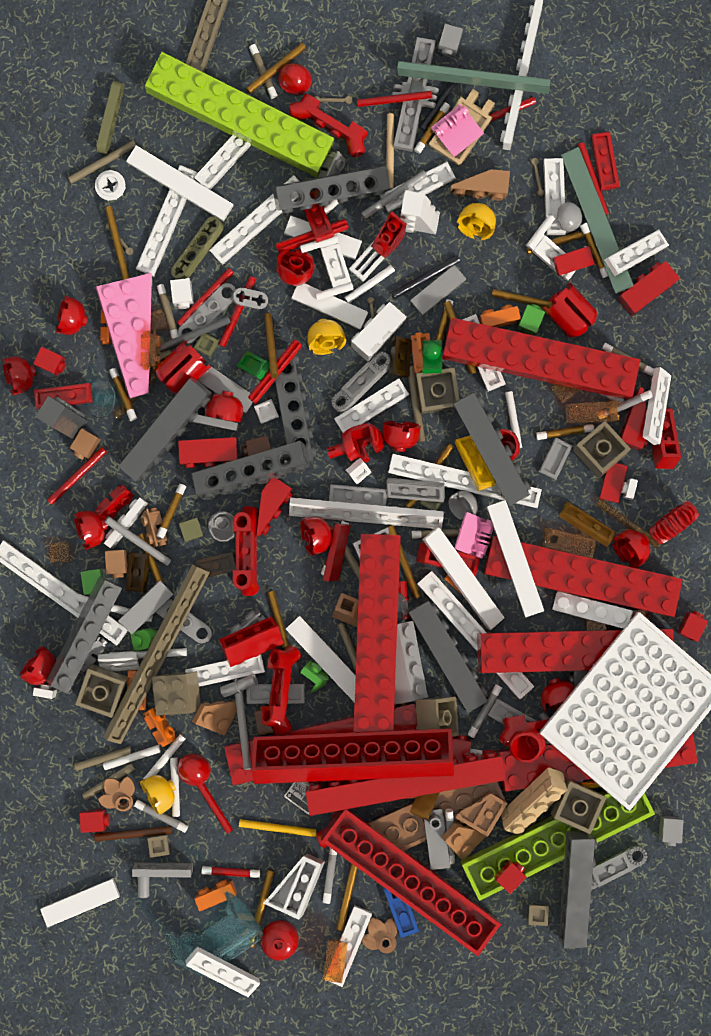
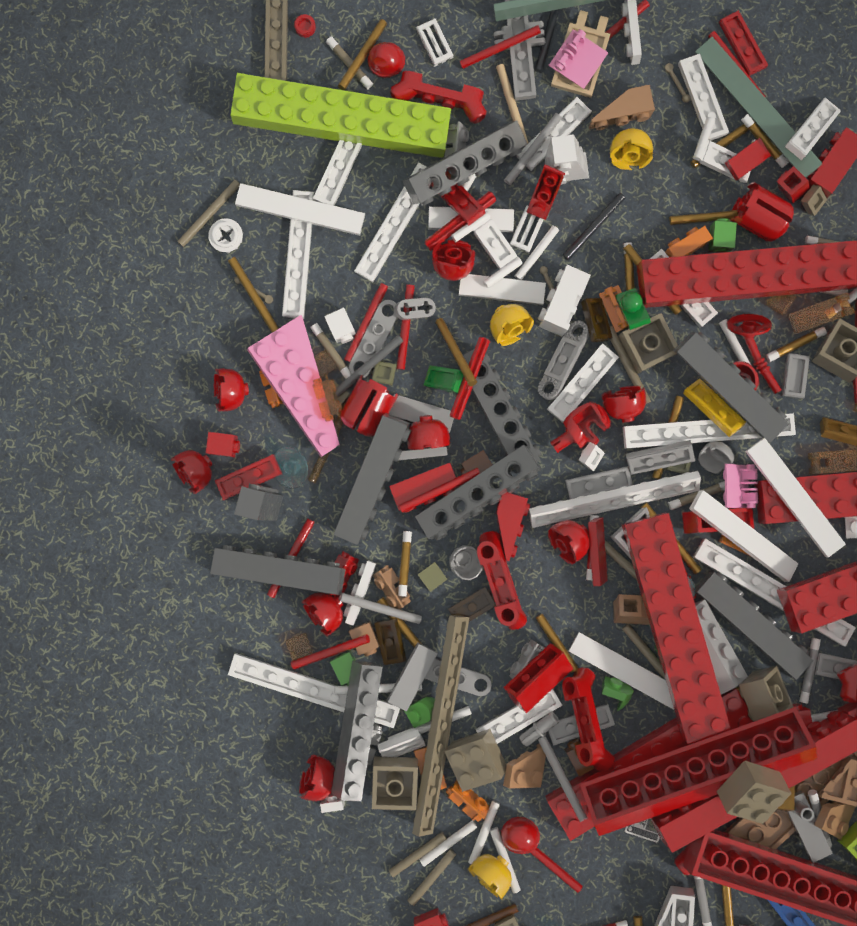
camera: 15 degrees left, 0 degrees up
(62, 482) = (278, 571): none -> dark grey brick
(84, 444) = (288, 522): medium nougat brick -> none
(84, 564) = (330, 651): none -> red bar
(110, 117) = (202, 162): olive beam -> none
(115, 792) = (445, 886): medium nougat plate -> none
(123, 395) = (312, 455): pearl gold bar -> none
(163, 817) = (510, 898): light grey bar -> none
(200, 250) = (338, 273): olive beam -> none
(217, 457) = (439, 490): none -> red bar
(235, 27) = (305, 25): none -> red tile
(266, 411) = (471, 424): white tile -> none
(277, 828) = (630, 868): yellow bar -> none
(343, 92) = (442, 58): none -> white tile
(348, 100) = (449, 65): dark tan hinge -> none
(389, 783) = (753, 792): none -> dark tan brick
(429, 132) = (547, 69): pearl gold bar -> none
(438, 290) = (612, 236): light grey tile -> none
(528, 406) = (748, 330): none -> red dish
(569, 216) = (728, 113): light grey hair -> none
(604, 295) = (793, 184): none -> red brick
(619, 314) = (814, 200): none -> dark tan plate

